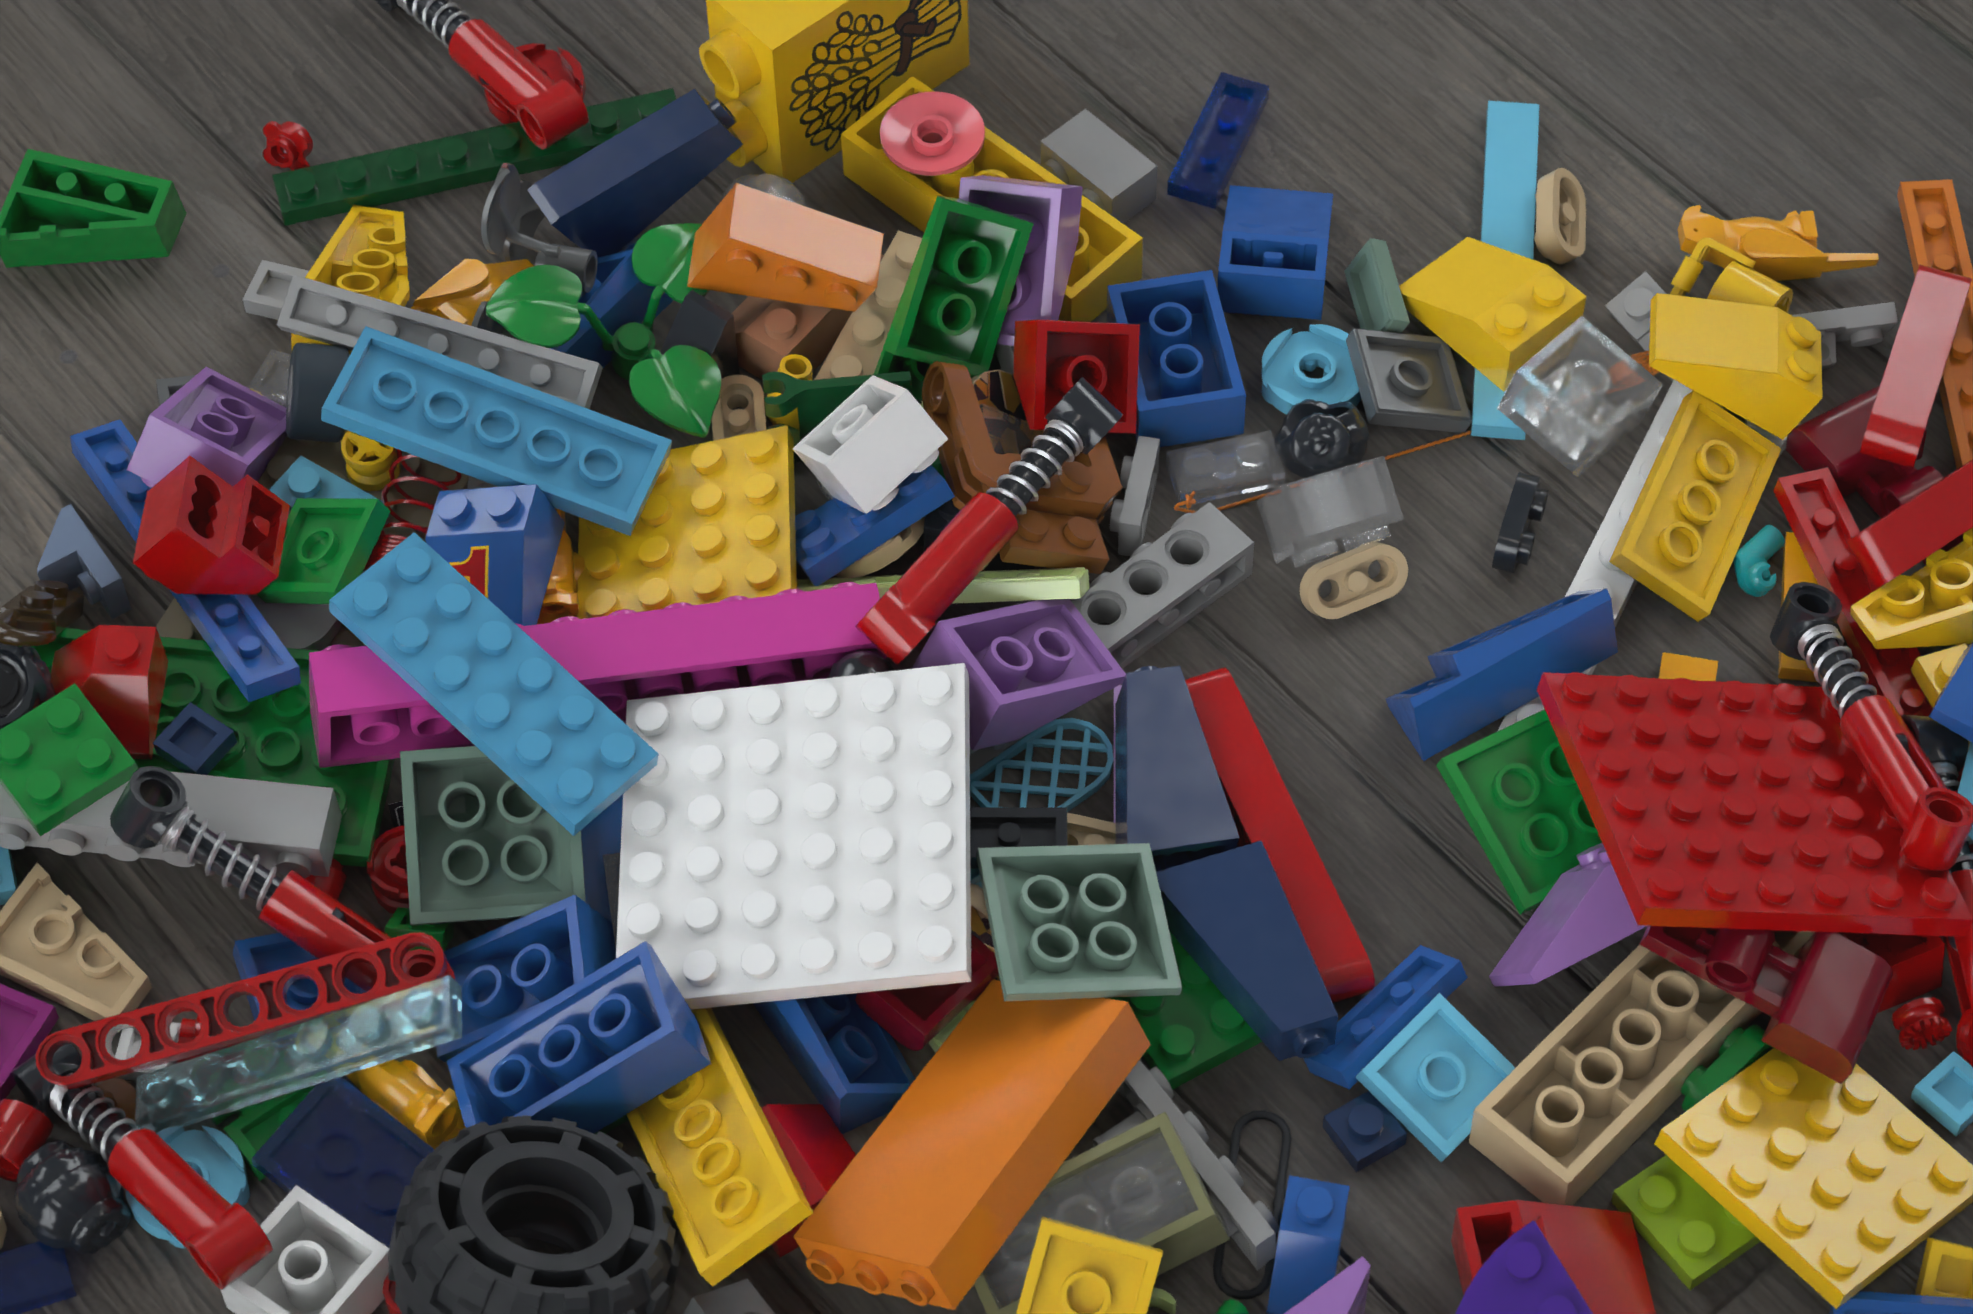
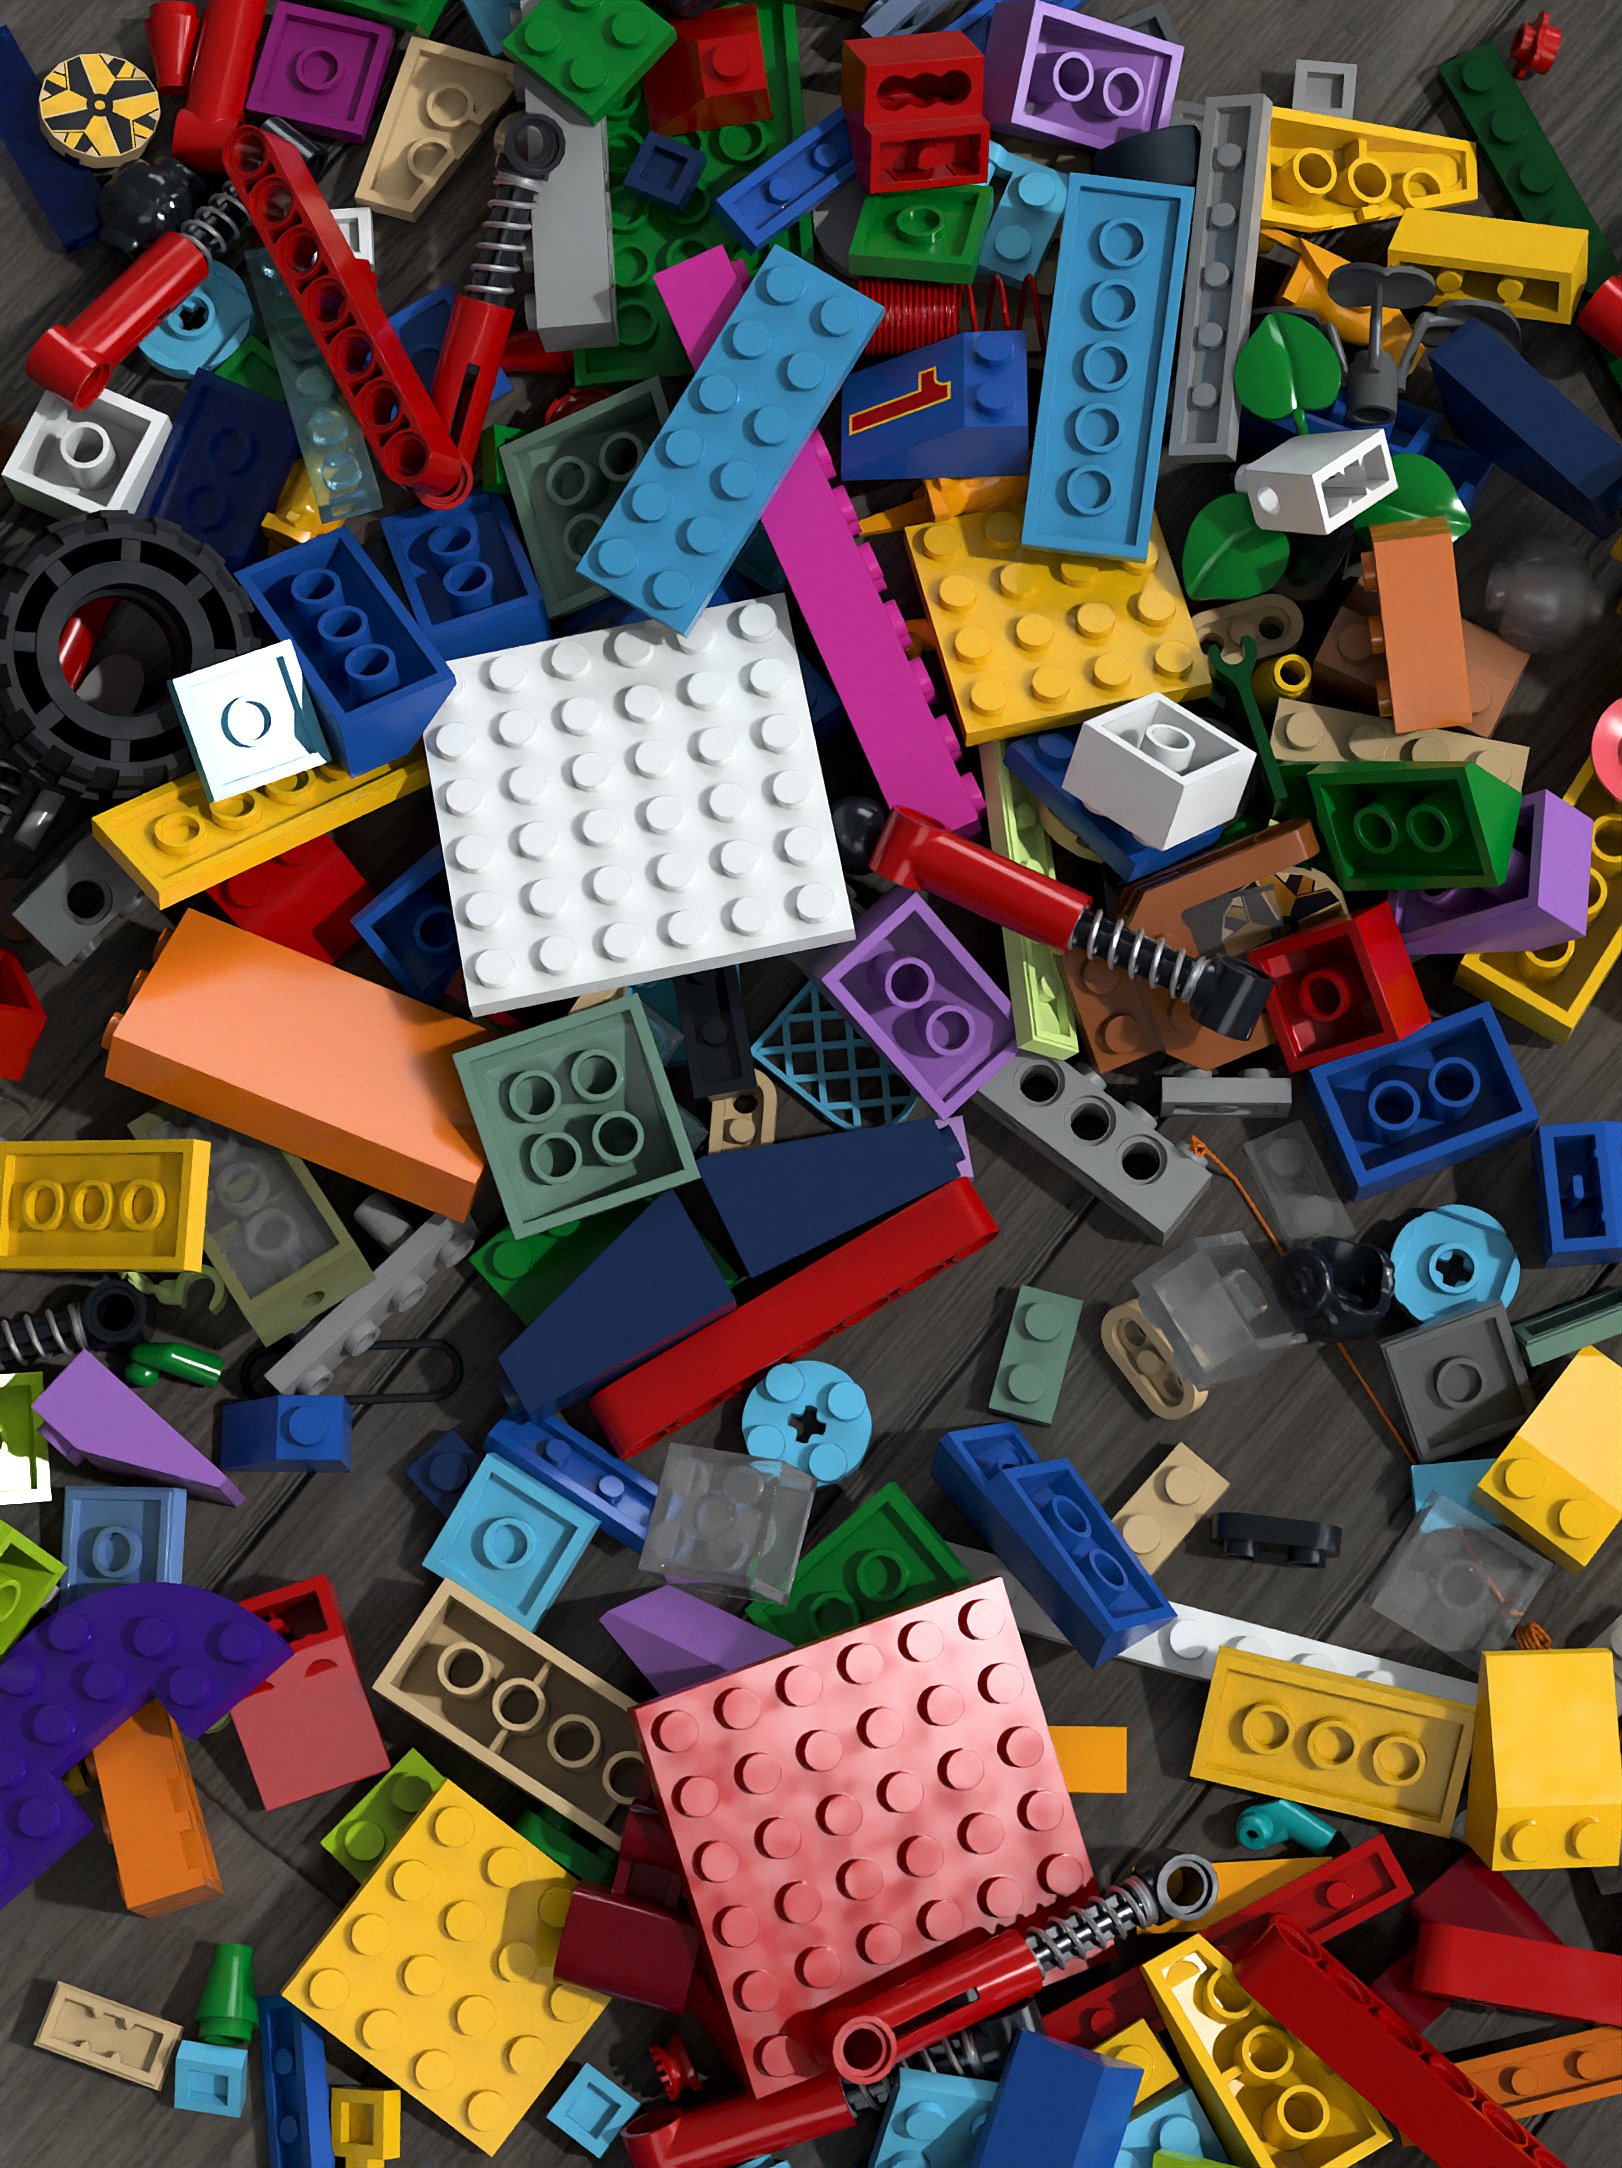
camera: 85 degrees right, 20 degrees up
(452, 215) = (1521, 265): none -> yellow brick
(639, 1125) = (249, 721): none -> plate
(644, 304) = (1293, 485): none -> white torso
(1332, 671) = (1035, 1356): none -> sand green plate
(1373, 817) = (839, 1406): none -> medium azure plate
(1453, 894) = (728, 1523): none -> clear brick
(1473, 594) = (1169, 1506): none -> tan plate

